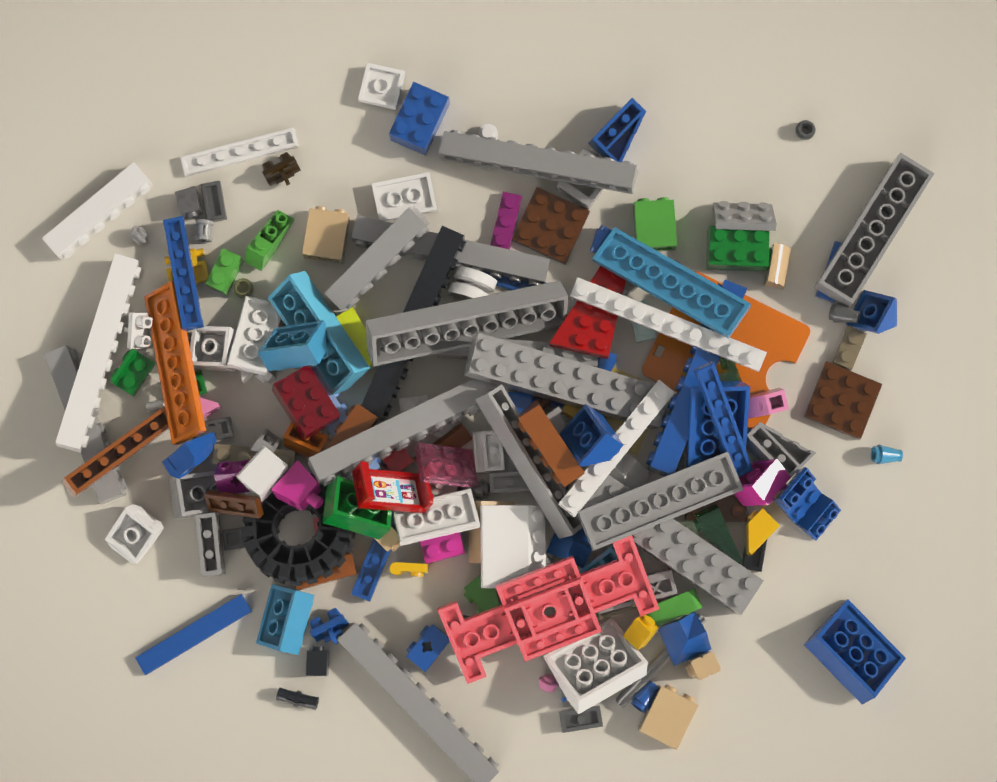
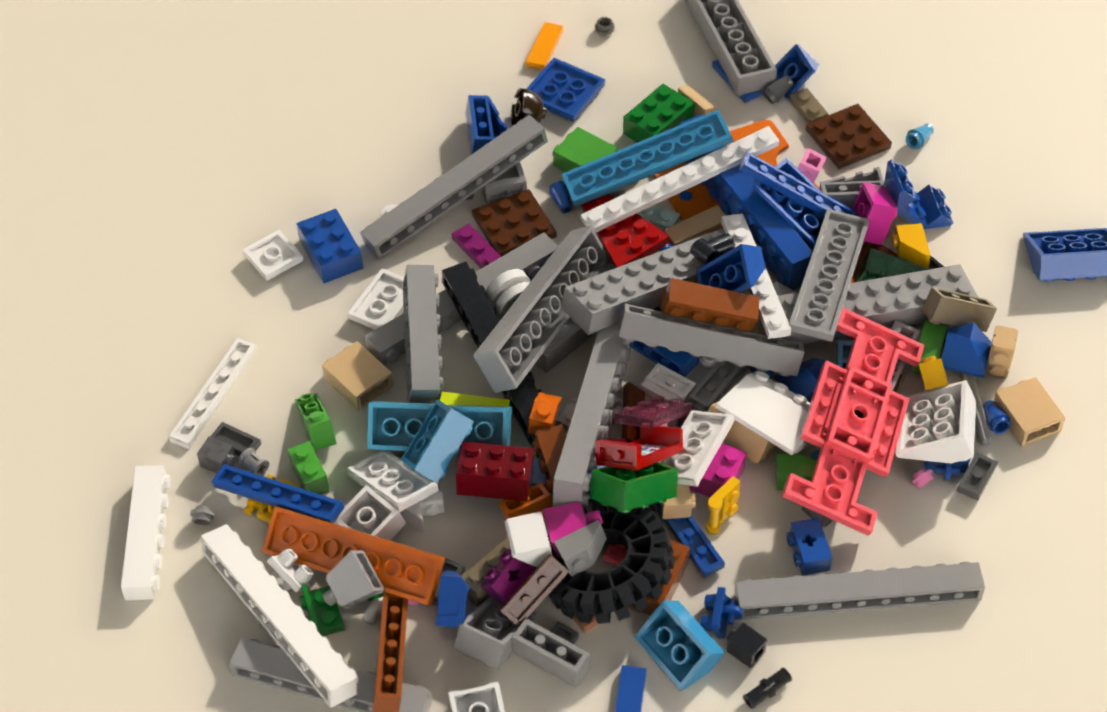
camera: 50 degrees left, 30 degrees down
(153, 383) = (352, 580): none -> light grey torso
(243, 287) = (336, 469): olive plate -> none
(268, 440) = (494, 537): light grey slope -> none
(281, 171) = (266, 369): dark brown hips -> none
(283, 511) = (581, 547): none -> light grey slope
(384, 393) = (544, 412): none -> orange slope
(608, 400) = (709, 250): none -> black piece
(653, 358) = (695, 226): none -> tan tile
(663, 147) = (527, 104): none -> dark brown cylinder
(711, 154) = (566, 88): none -> blue plate
(715, 610) = (958, 309): none -> dark tan brick
(744, 216) = (635, 96): light grey plate -> none
(747, 101) = (544, 45): none -> light orange tile

